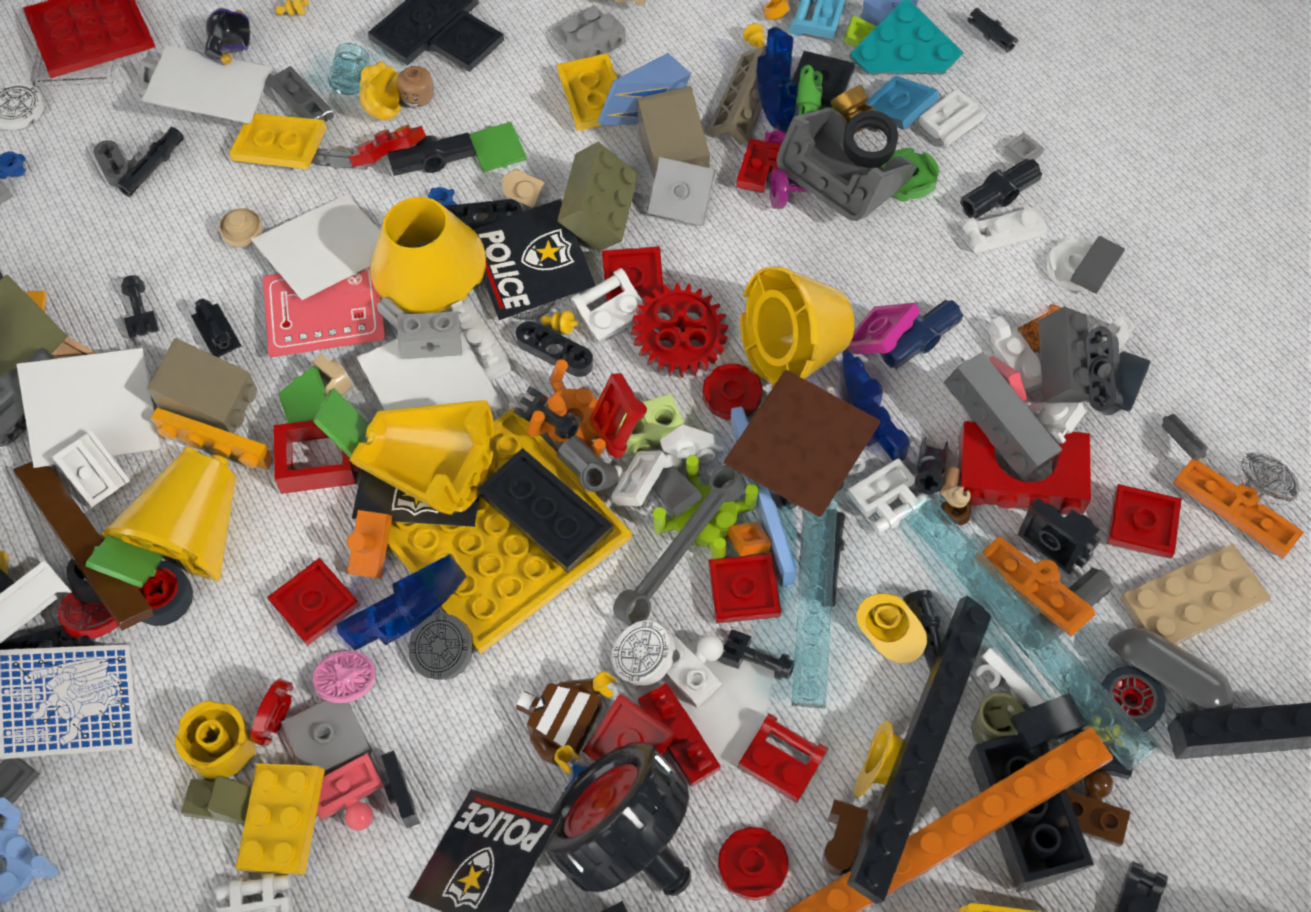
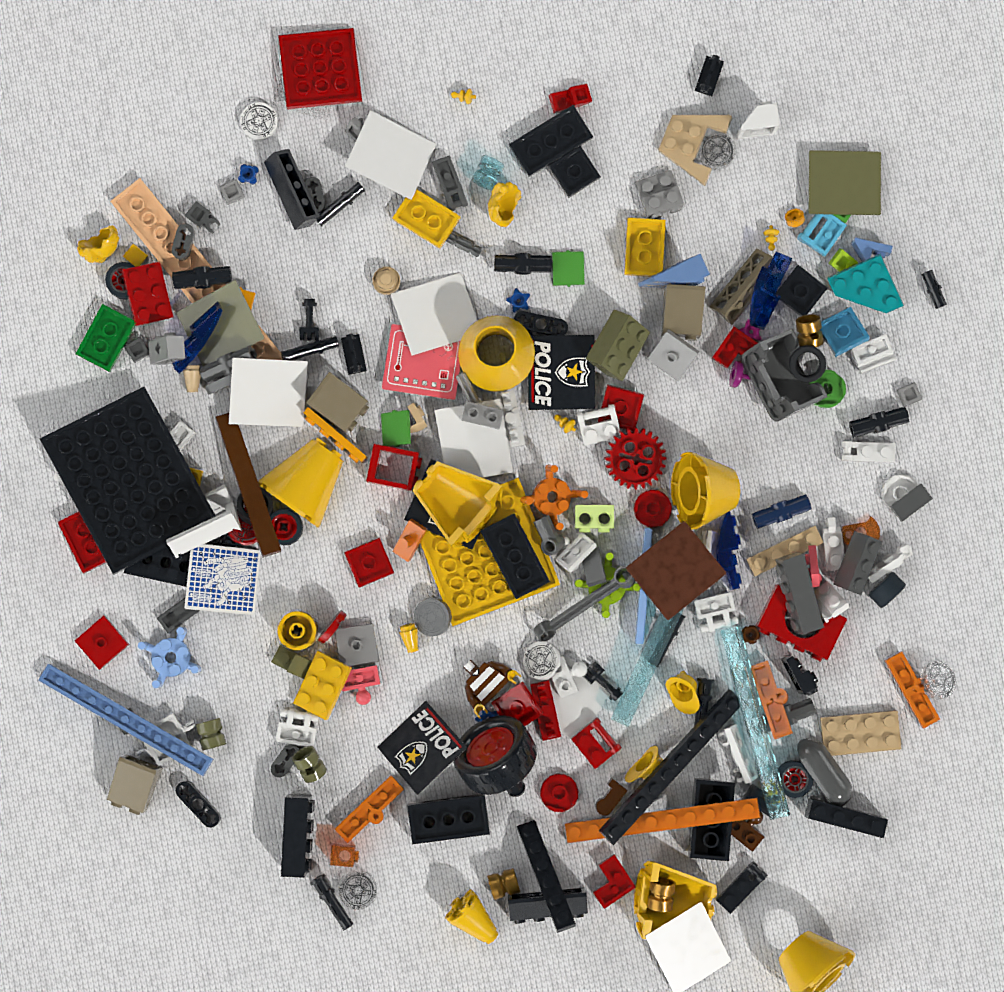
camera: 15 degrees right, 25 degrees up
(75, 158) = (291, 189): none -> black brick
(90, 469) = (261, 434): white plate -> none
(124, 561) = (271, 511): bright green piece -> none
(154, 334) = (311, 348): none -> black pin
(226, 32) = (412, 110): black piece -> none
(341, 422) = (414, 460): bright green piece -> none
(344, 677) = (375, 614): bright pink wheel -> none
(385, 142) = (495, 247): red plate -> none
(398, 790) = (387, 691): black plate -> none
(411, 690) = (409, 635): none -> yellow cone
(412, 602) = (425, 588): clear blue slope -> none
(415, 86) = (528, 204): medium nougat head -> none
(522, 187) = (573, 313): tan plate -> none
(548, 337) = (543, 433): black beam -> none
(564, 425) = (544, 509): black hinge -> none
(609, 411) = (572, 509): red plate -> none
(690, 441) = (612, 545): white plate -> none
(744, 588) = (611, 639): red plate -> none
(749, 538) = (625, 611): orange plate -> none
(809, 91) = (783, 311): bright green piece -> none
(883, 328) = (757, 503): dark pink plate -> none
(931, 468) = (747, 604): black piece -> none
(936, 397) = (799, 543): none -> tan plate
(951, 492) = (751, 624): arm -> none
(994, 717) = (716, 767): olive wheel -> none
(1048, 721) = (740, 782): black slope -> none
(1113, 380) = (873, 569): black beam -> none
(1144, 521) = (854, 679): red plate -> none
(1184, 437) = (903, 637): dark grey axle -> none

